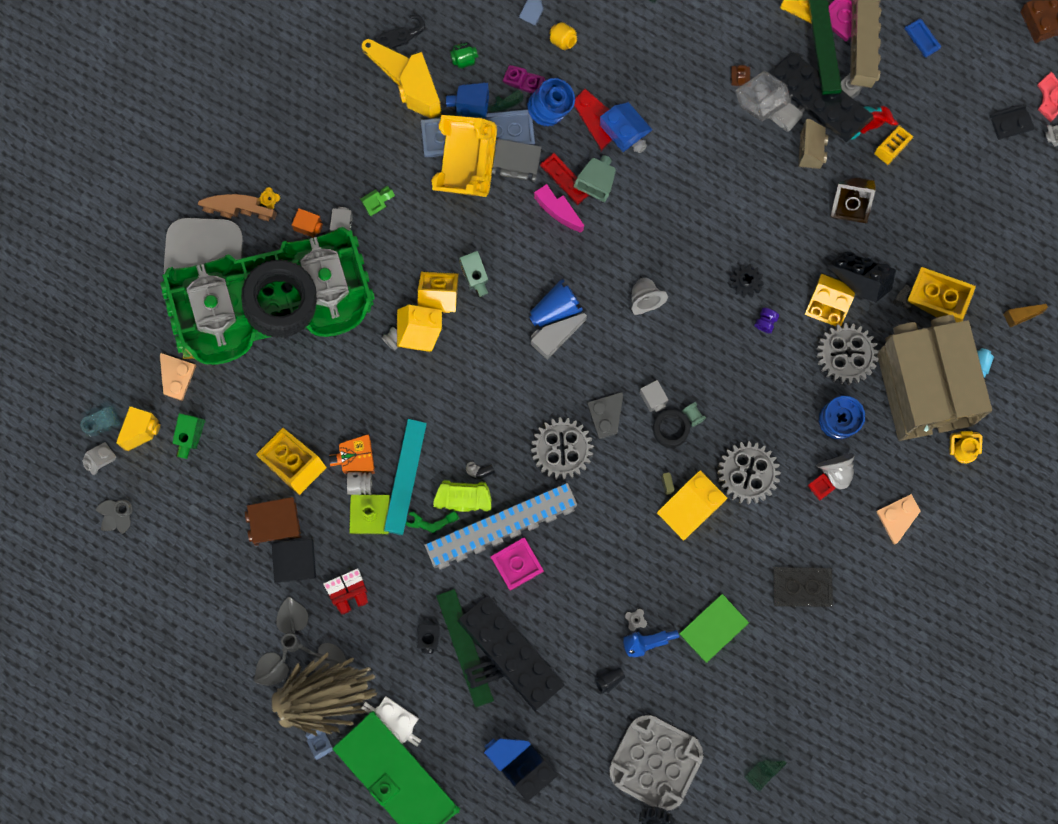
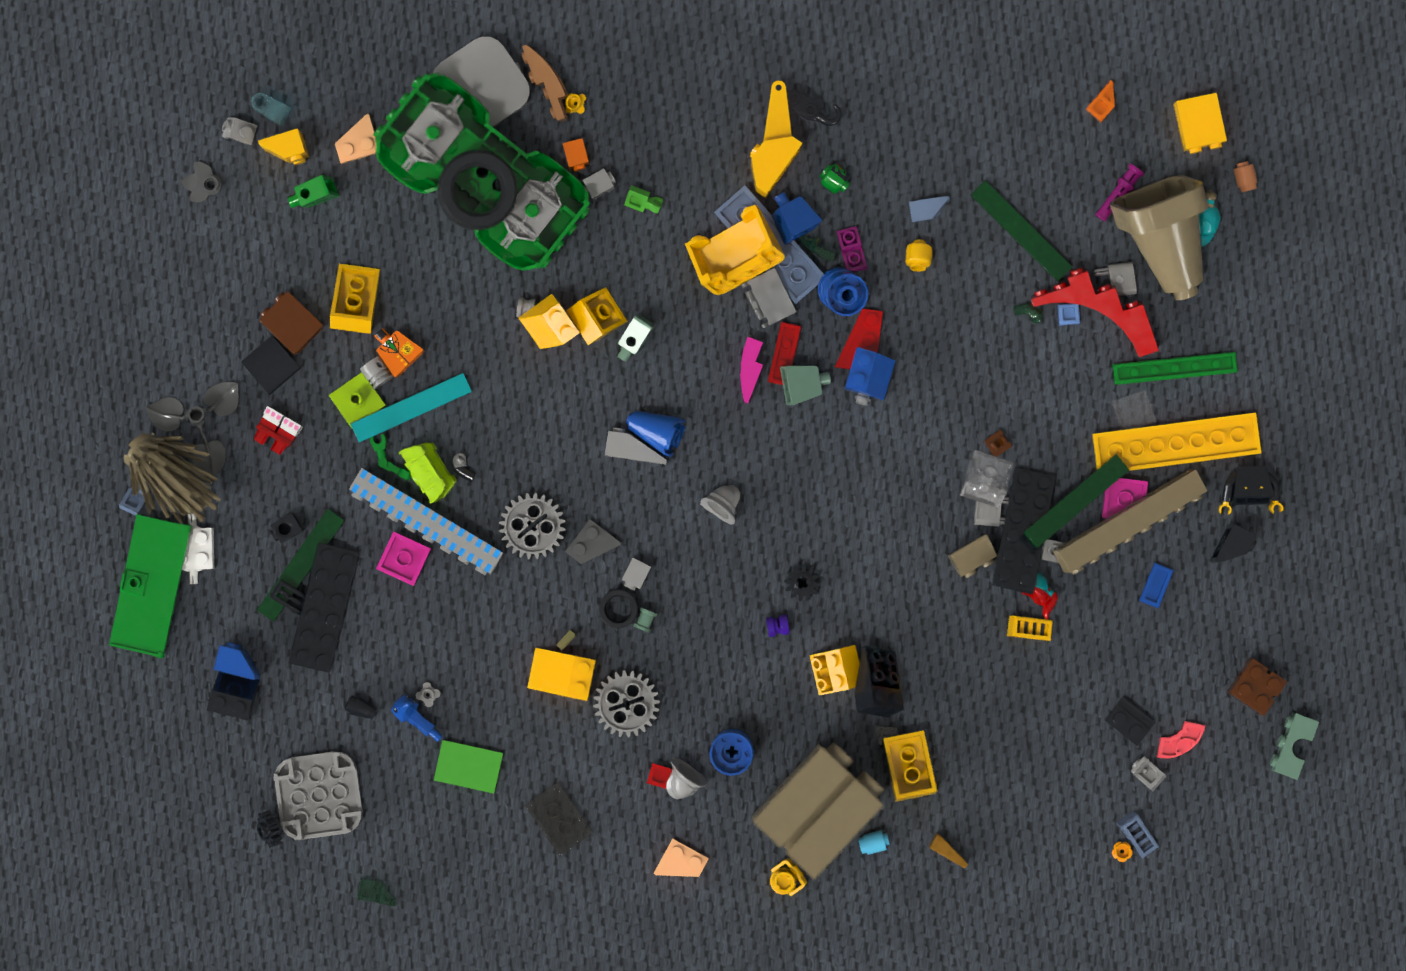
camera: 50 degrees right, 10 degrees up
(849, 370) = (812, 706): light grey gear -> none
(853, 200) = (948, 627): dark brown slope -> none

